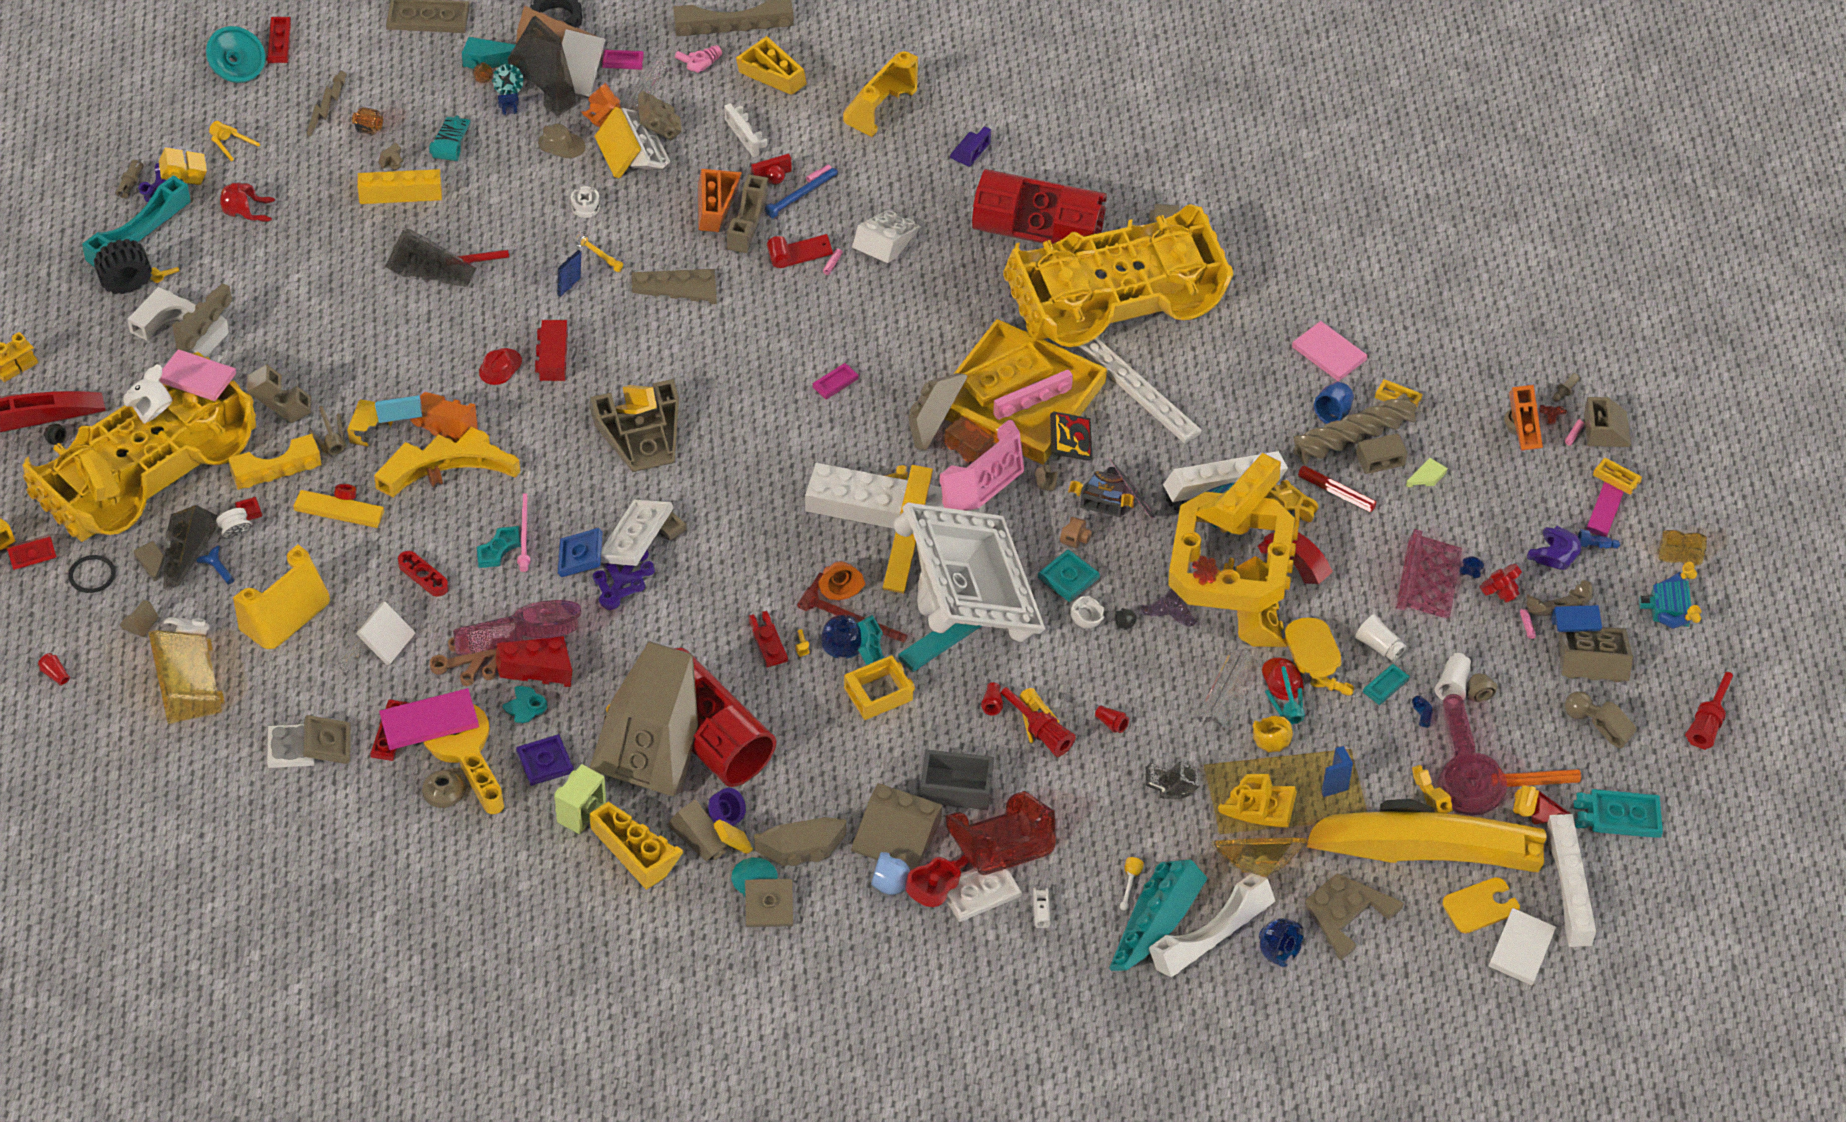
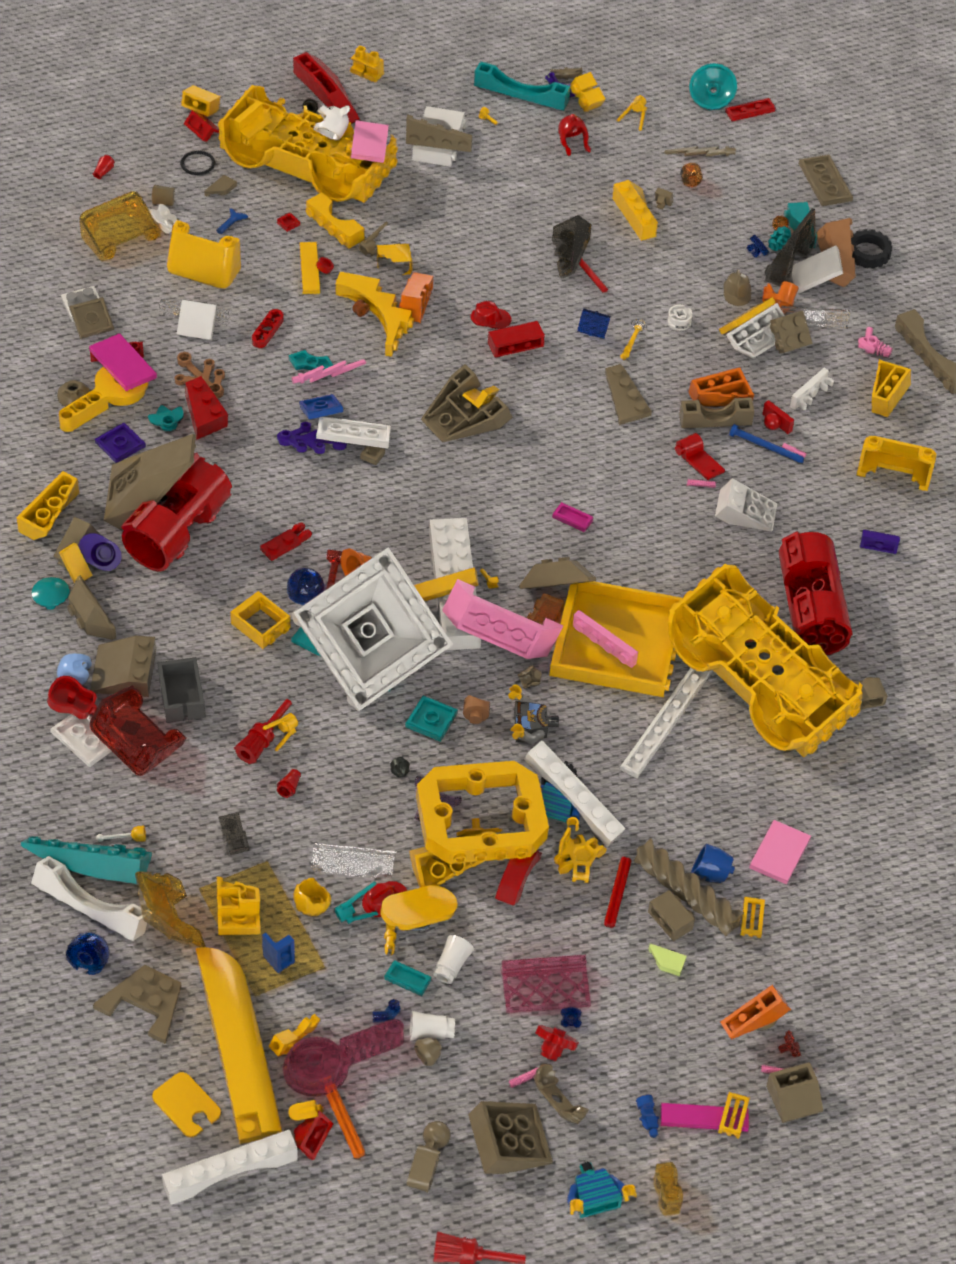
camera: 70 degrees right, 0 degrees up
(122, 266) = (471, 87): black tyre -> none
(188, 535) = (249, 196): clear smoke wedge -> none
(233, 523) = (265, 213): white wheel -> none
(266, 387) = (383, 185): dark tan arch -> none
(398, 409) = (403, 262): medium azure panel -> none
(448, 140) = (693, 223): teal door -> none
(533, 620) = (236, 397): clear pink beam -> none
(579, 797) = (81, 463): yellowish green brick -> none
(623, 59) = (847, 300): dark pink tile -> none
(769, 902) = (25, 605): dark tan plate -> none
(802, 647) = (286, 565): yellow hand -> none
(870, 640) = (292, 602): teal tile -> none
(992, 700) = (276, 697): red cone -> none
(1006, 373) = (624, 618): yellow tile -> none
(1041, 908) = (79, 780): white bar -> none
(1071, 436) = (578, 679): tile -> none
(1087, 612) = (393, 737): white hair -> none
(1149, 512) = (538, 727): black piece -> none
(1205, 570) = (438, 788): clear red plant -> none
(1244, 495) = (538, 798): yellow wedge -> none
(1405, 805) = (257, 1010): pearl dark grey tile -> none
(1522, 946) = (147, 1144): white tile -> none
(1562, 551) = (613, 1080): dark purple helmet -> none
(1565, 389) = (830, 1052): dark tan piece -> none
(1577, 618) = (538, 1113): blue panel -> none
(1620, 813) = (327, 1199): teal tile -> none

